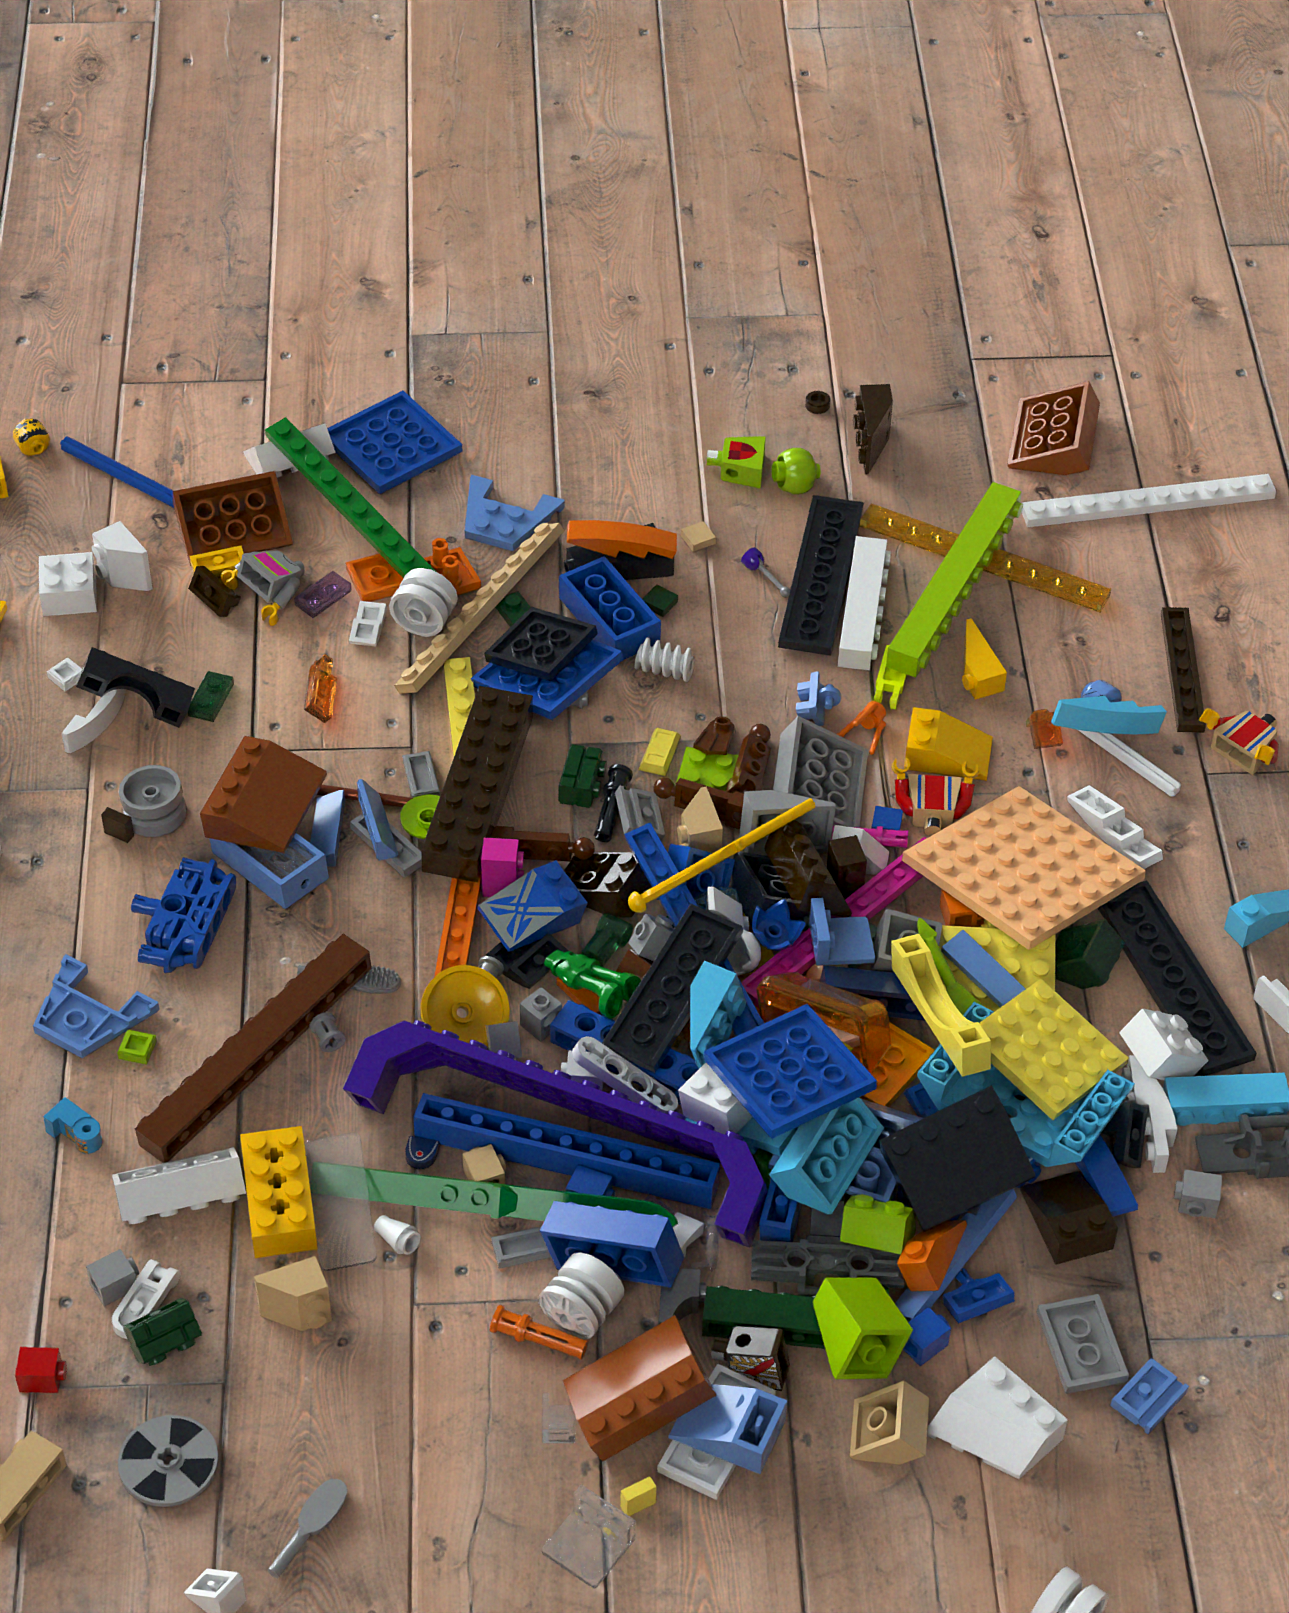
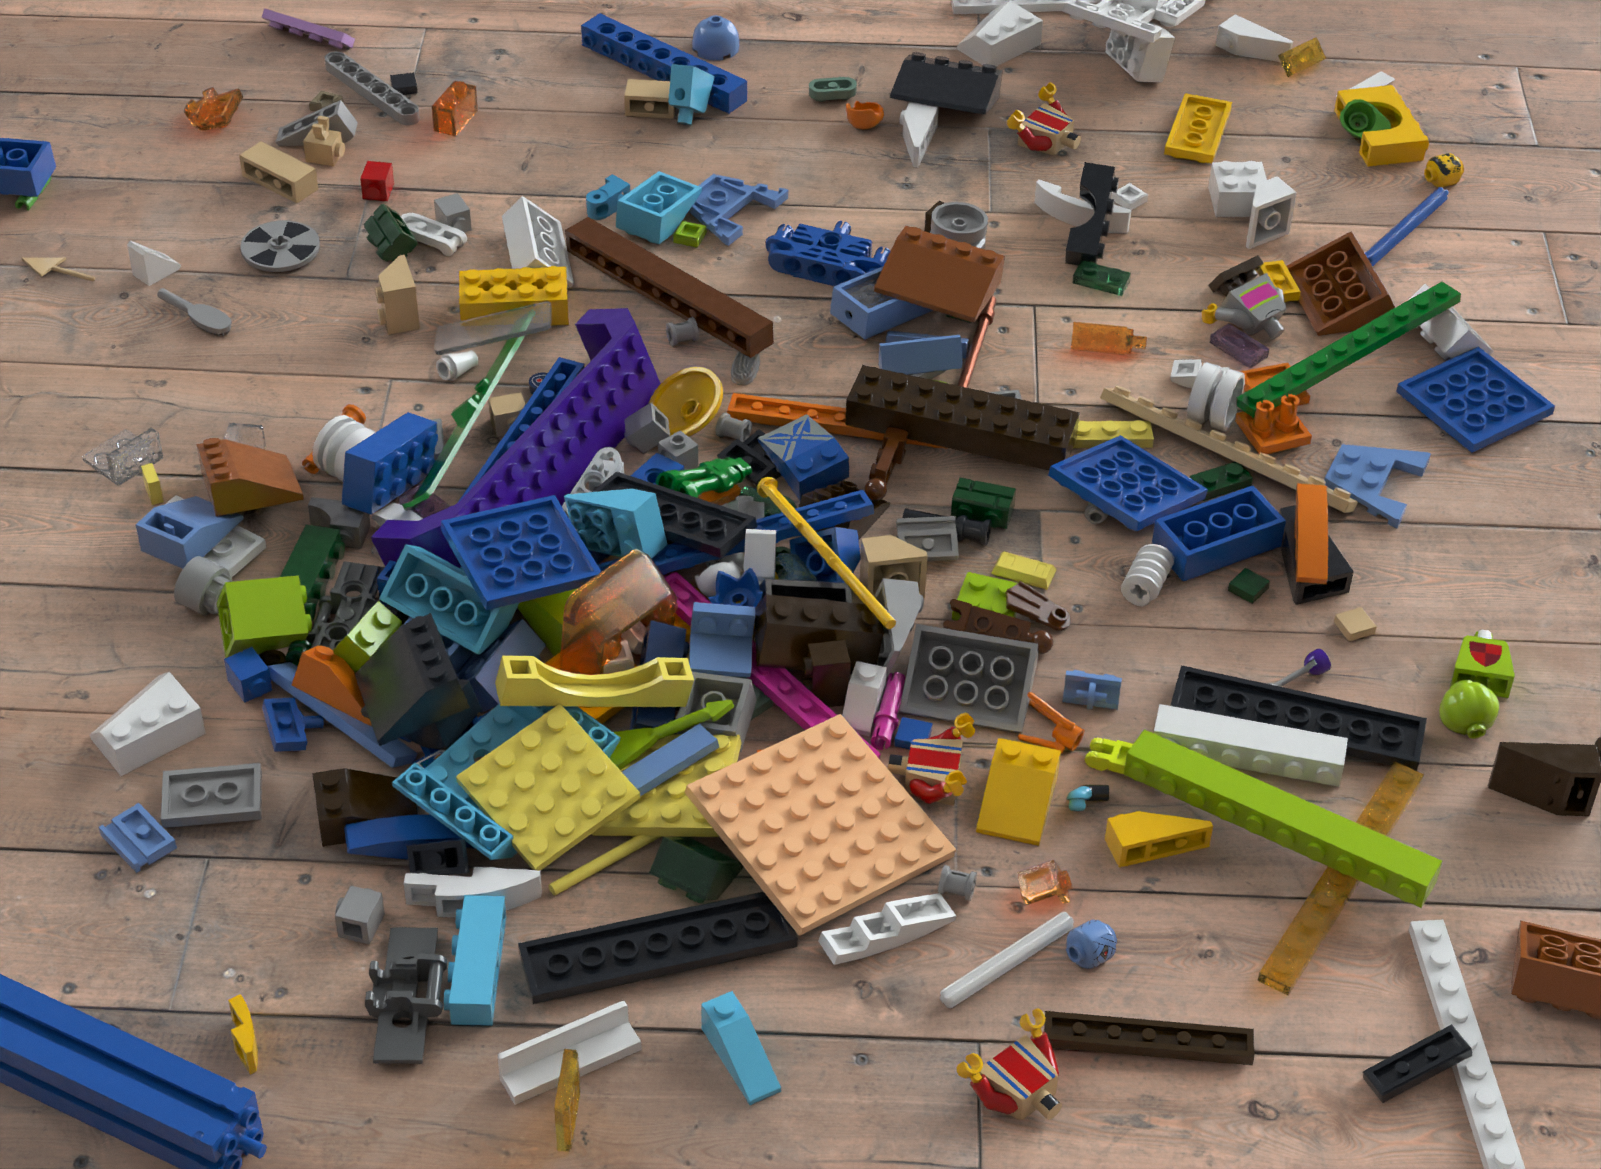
camera: 95 degrees right, 5 degrees down
(105, 1068) = (656, 207): none -> medium azure slope
(500, 864) = (854, 429): dark pink brick -> none
(541, 643) = (1153, 470): black plate -> none
(590, 1182) = (465, 471): blue brick -> none
(726, 804) = (941, 593): reddish brown plate -> none
(755, 1354) = (259, 554): dark brown torso -> none
(809, 1400) = (201, 585): none -> light grey piece
(890, 1425) = (163, 647): tan slope -> none
(931, 702) = (1087, 793): none -> arm
(1060, 782) = (957, 882): none -> light grey bush
(1103, 716) = (1049, 925): medium azure slope -> none
(1163, 1045) = (544, 899): white brick -> none
(1166, 523) = (1417, 1063): none -> black tile

